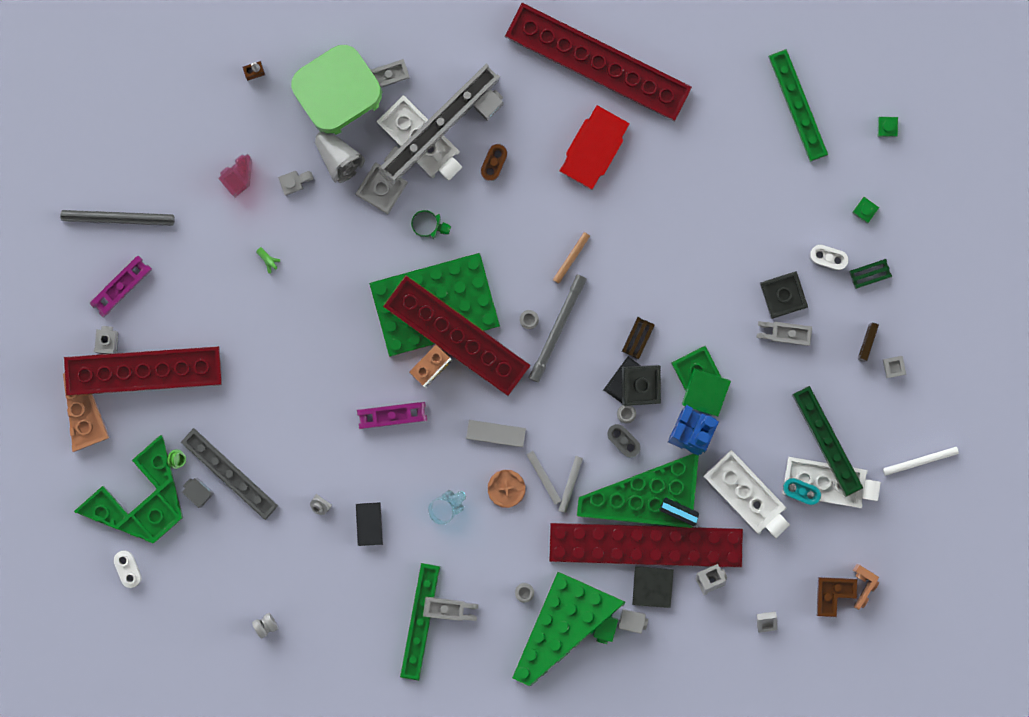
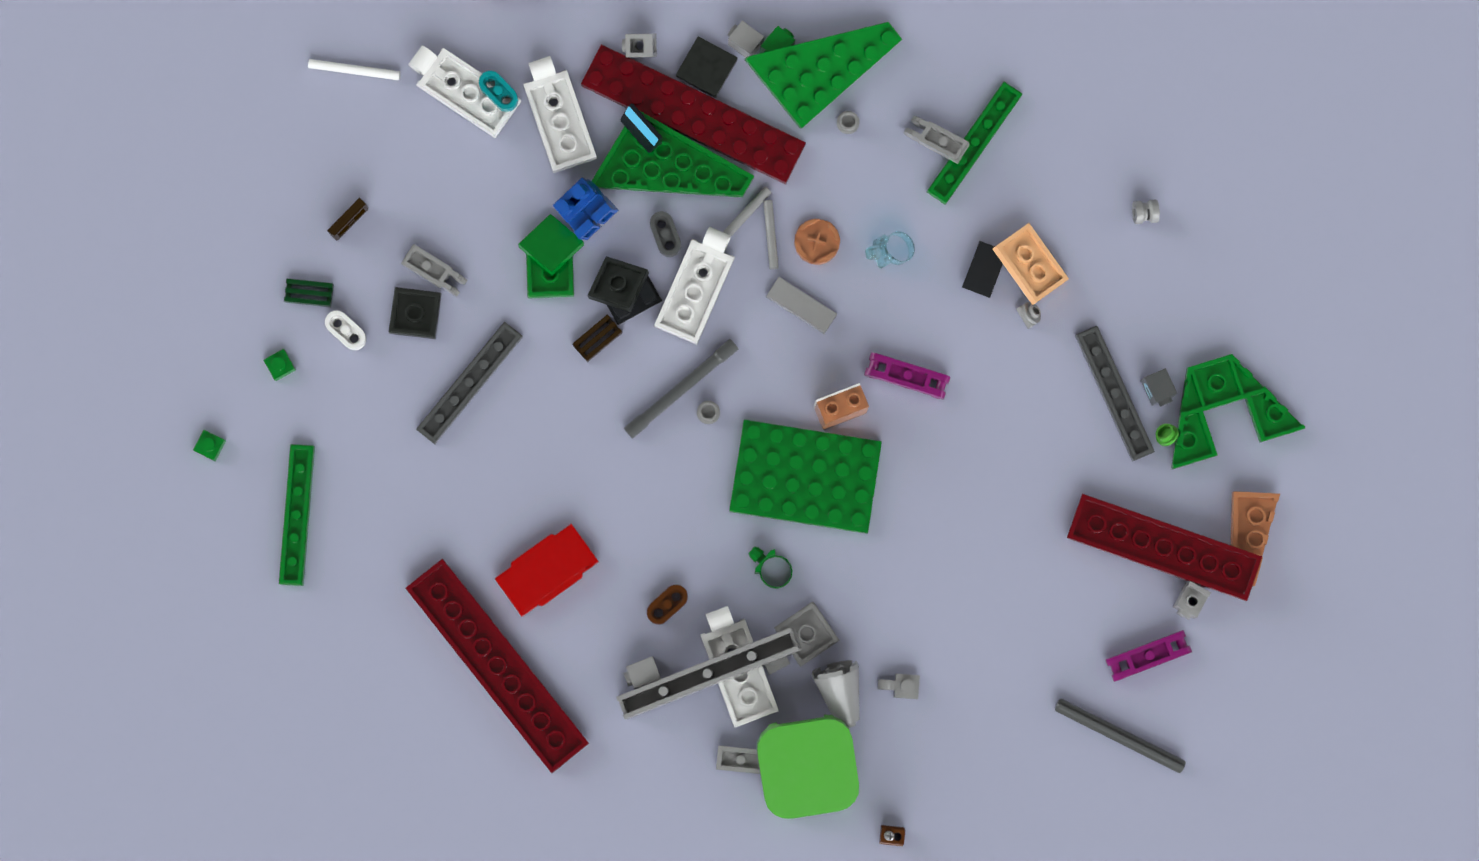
camera: 165 degrees left, 5 degrees down
(128, 568) = (1271, 340): white plate -> none
(238, 176) = (962, 719): clear pink slope -> none
(269, 261) = (969, 610): bright green bar -> none
(335, 543) = (1030, 263): none -> light nougat plate
(456, 335) = (797, 428): dark red plate -> none
(570, 259) = (630, 459): medium nougat bar -> none
(581, 403) = (694, 296): none -> white hinge
(626, 414) = (649, 260): light grey plate -> none
(717, 261) = (469, 383): none -> dark grey tile
(827, 441) = (444, 133): dark green tile -> none
(894, 367) = (333, 180): light grey plate -> none

